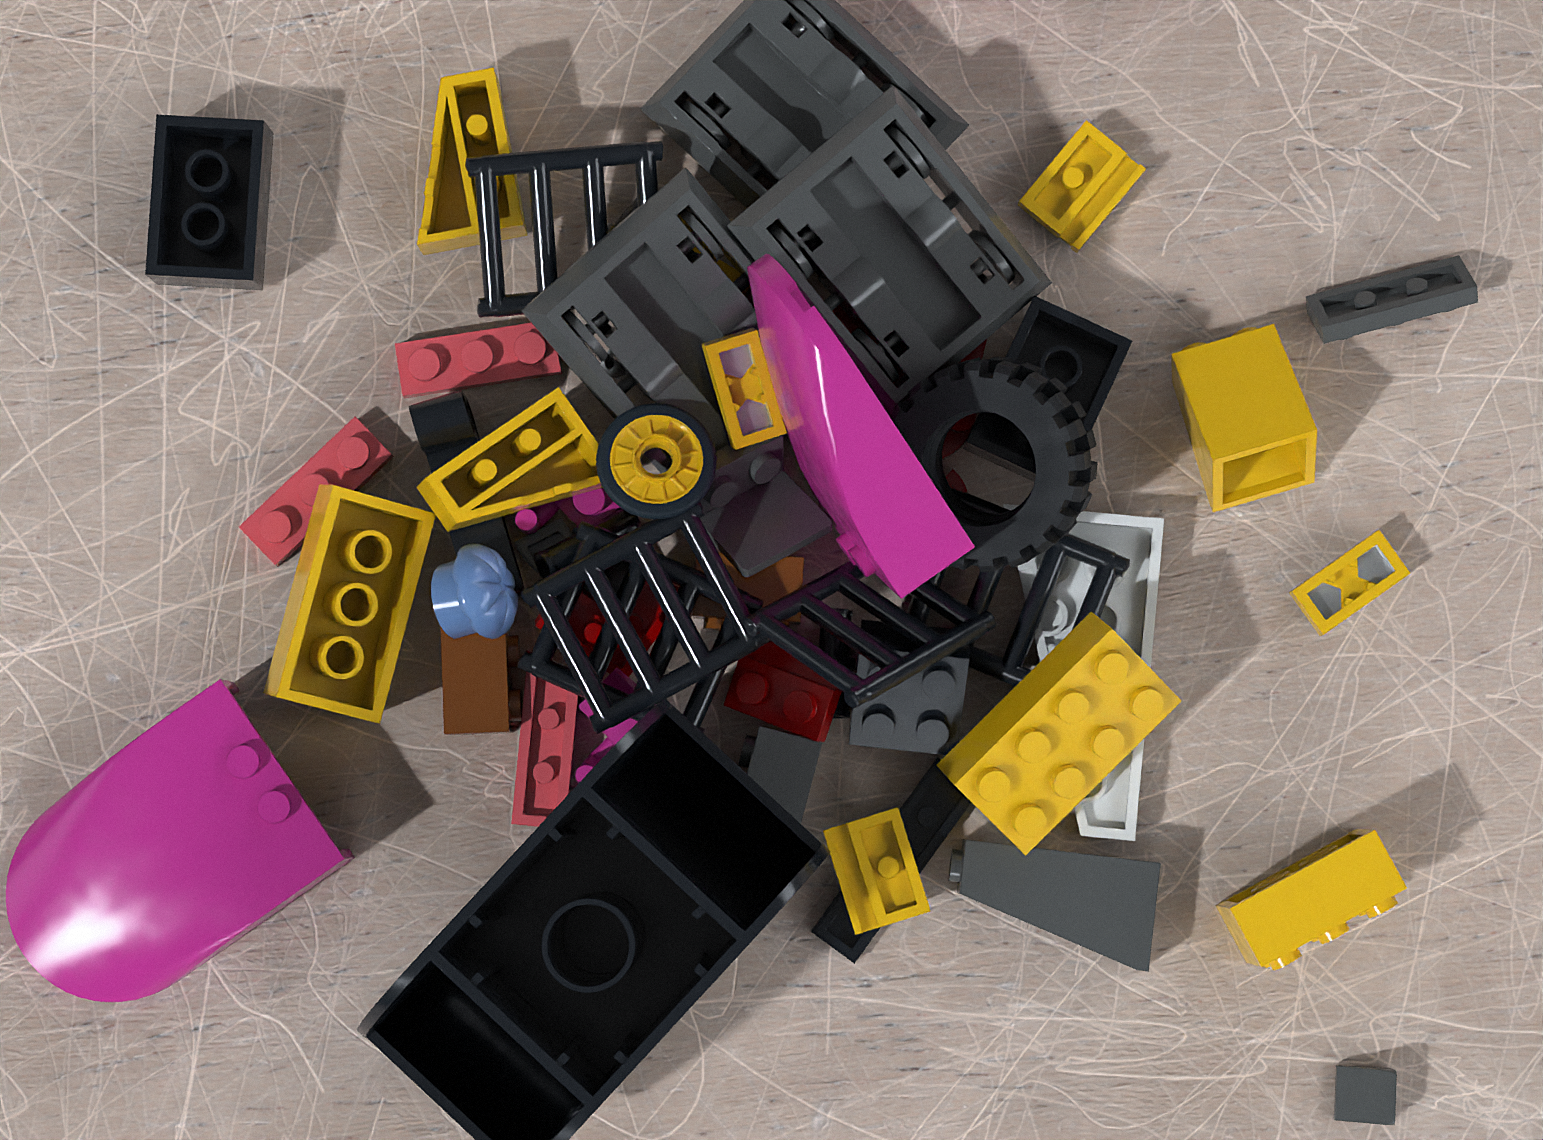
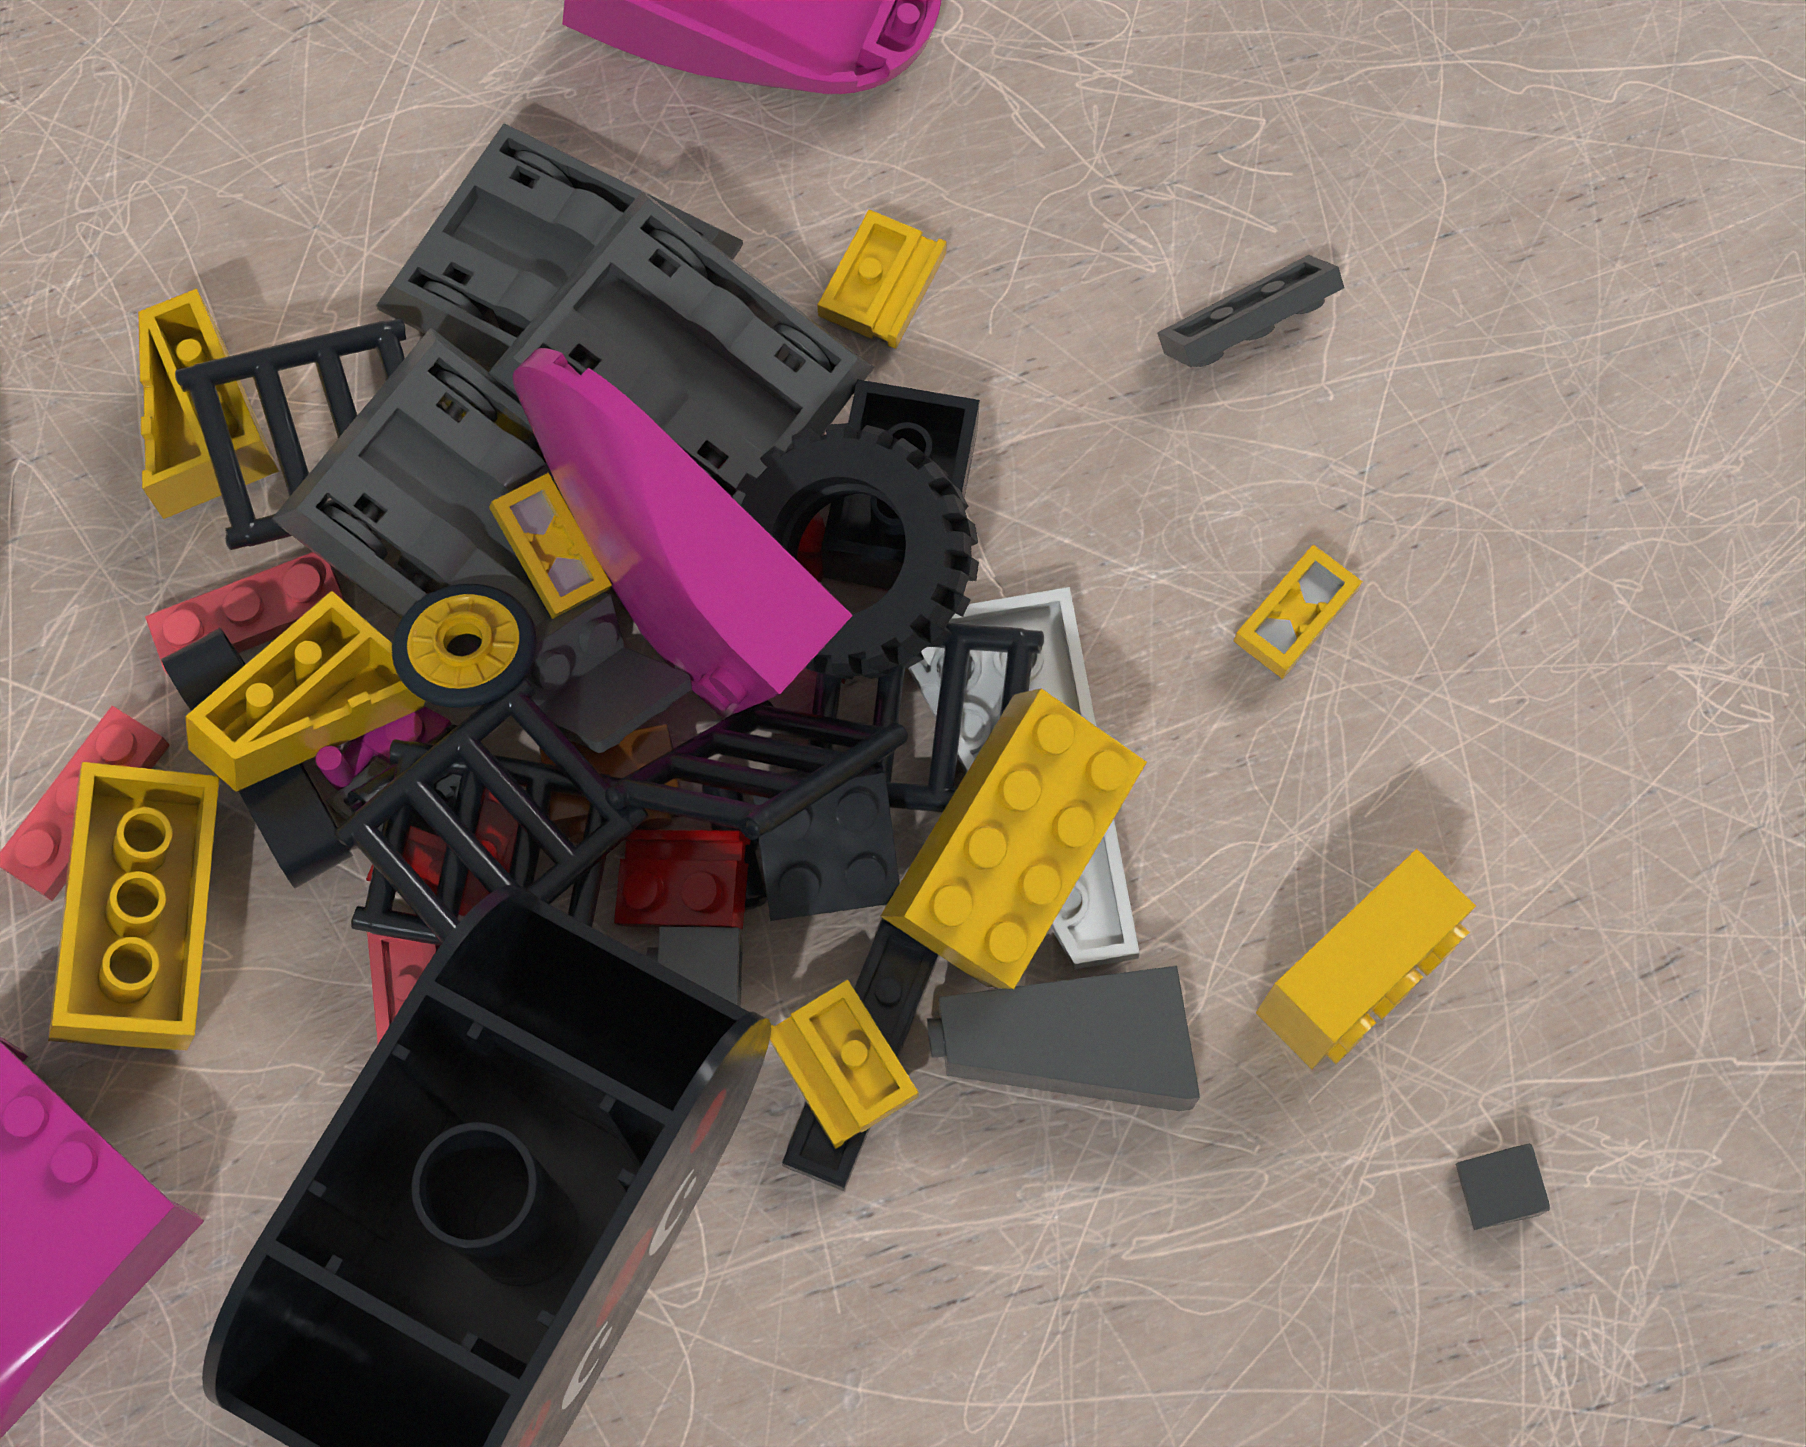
camera: 15 degrees left, 15 degrees down
(474, 594) = (278, 849): medium blue piece -> none
(479, 684) = (312, 964): dark orange brick -> none
(1245, 417) = (1130, 465): yellow slope -> none

